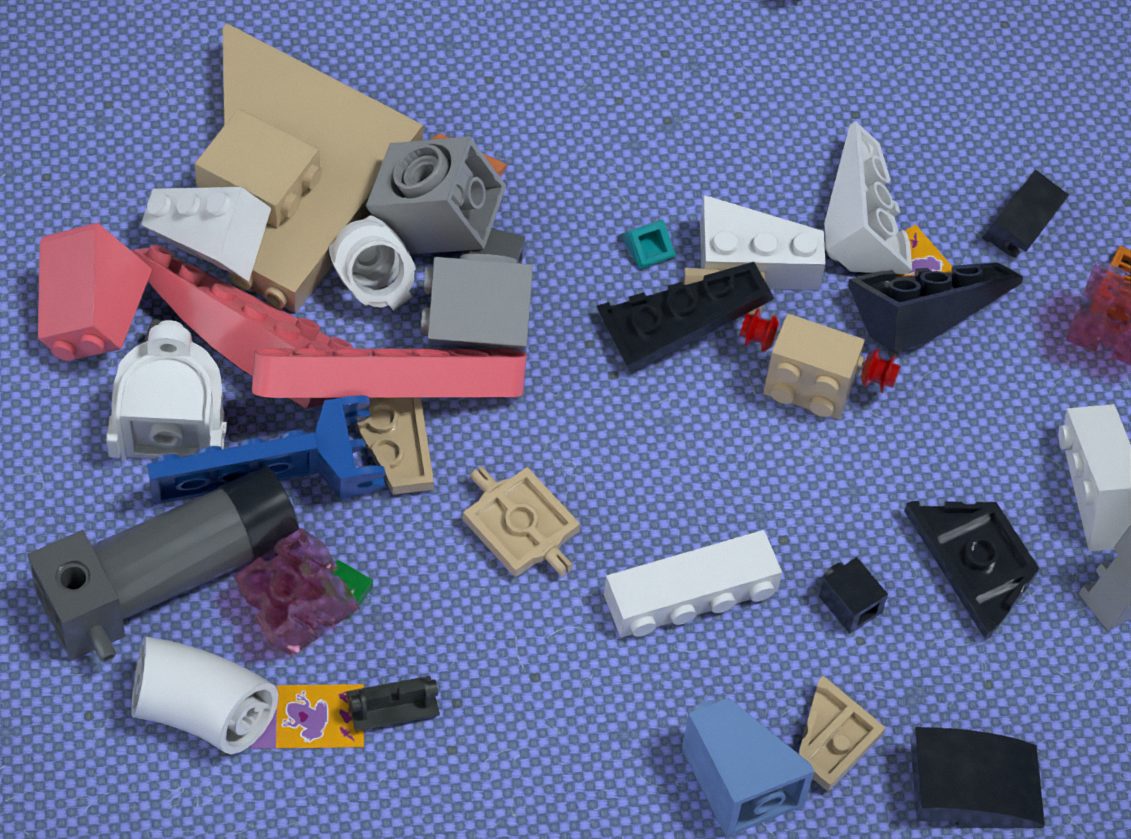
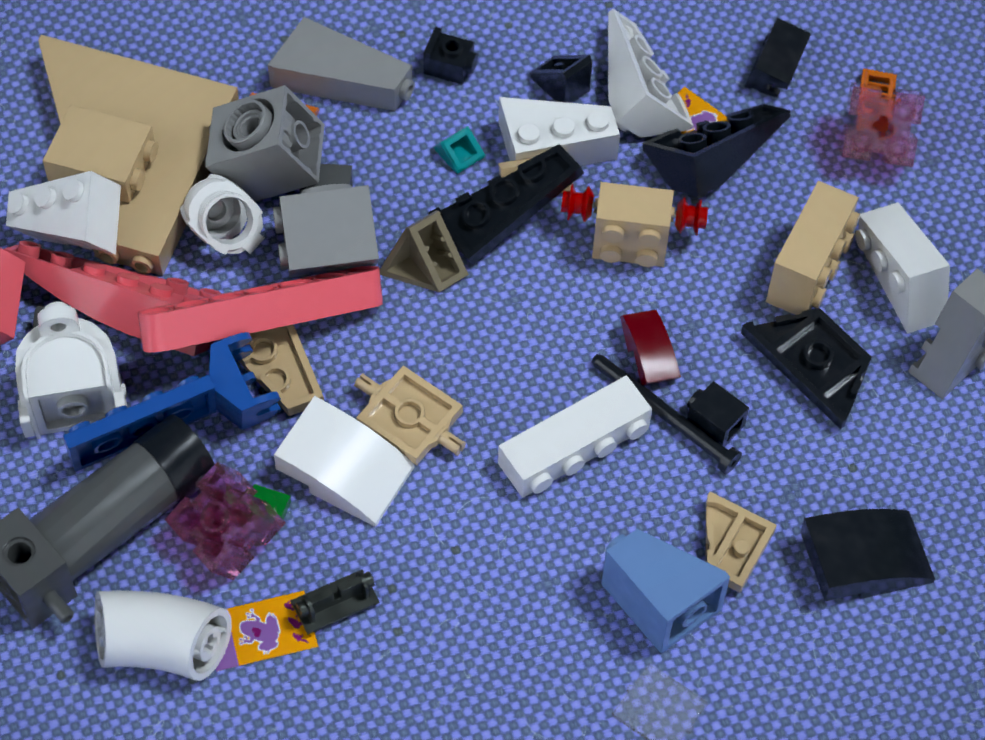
camera: 10 degrees left, 0 degrees up
(437, 556) = (343, 461): none -> white slope
(540, 126) = (339, 68): none -> light grey slope
(581, 353) = (425, 256): none -> dark tan slope
(662, 138) = (449, 57): none -> black brick
(783, 187) = (564, 77): none -> black slope
(800, 505) = (651, 346): none -> dark red slope
(852, 644) = (727, 458): none -> black bar
(1005, 437) = (813, 250): none -> tan brick

